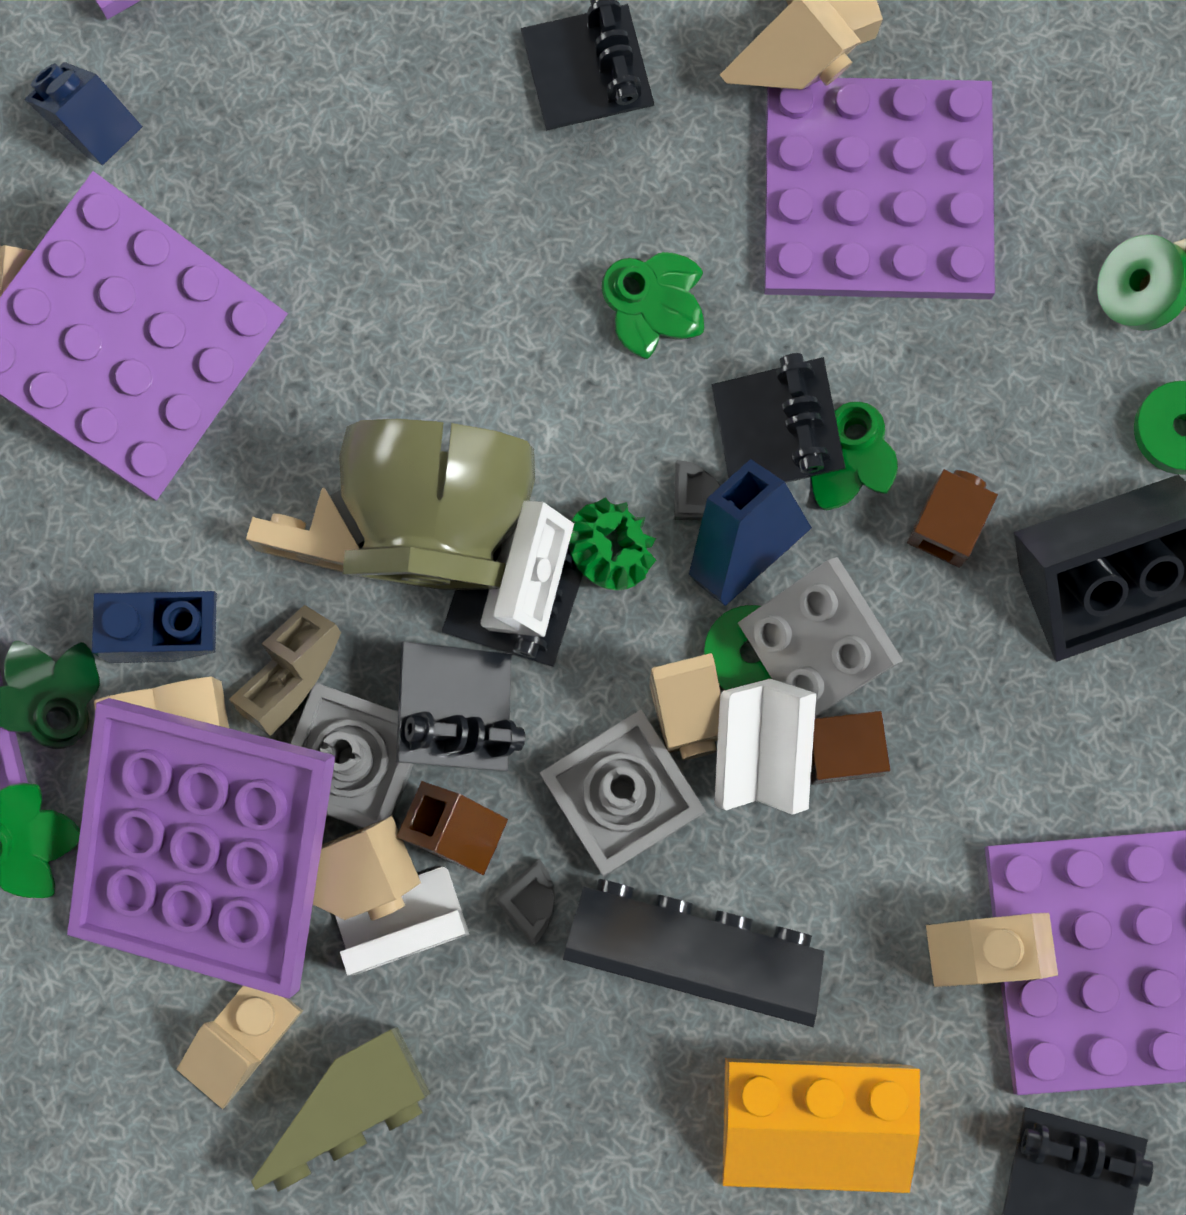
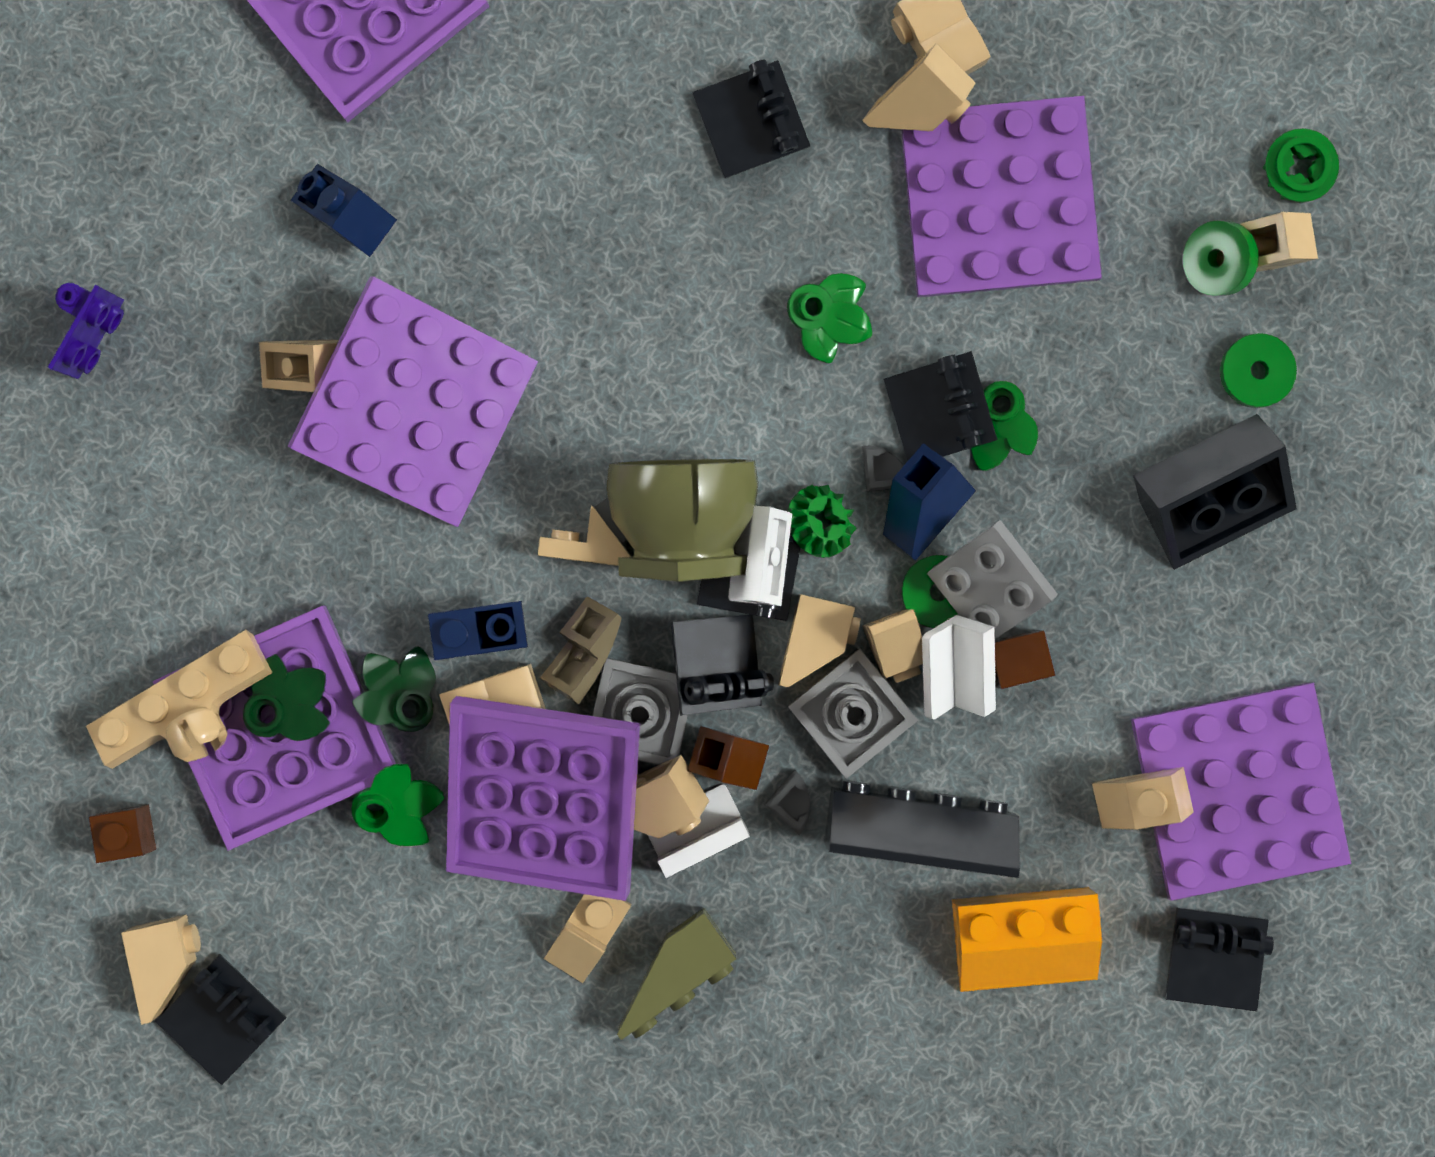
camera: 10 degrees left, 10 degrees up
(587, 688) = (816, 637): none -> tan slope
(953, 516) = (1084, 467): reddish brown brick -> none

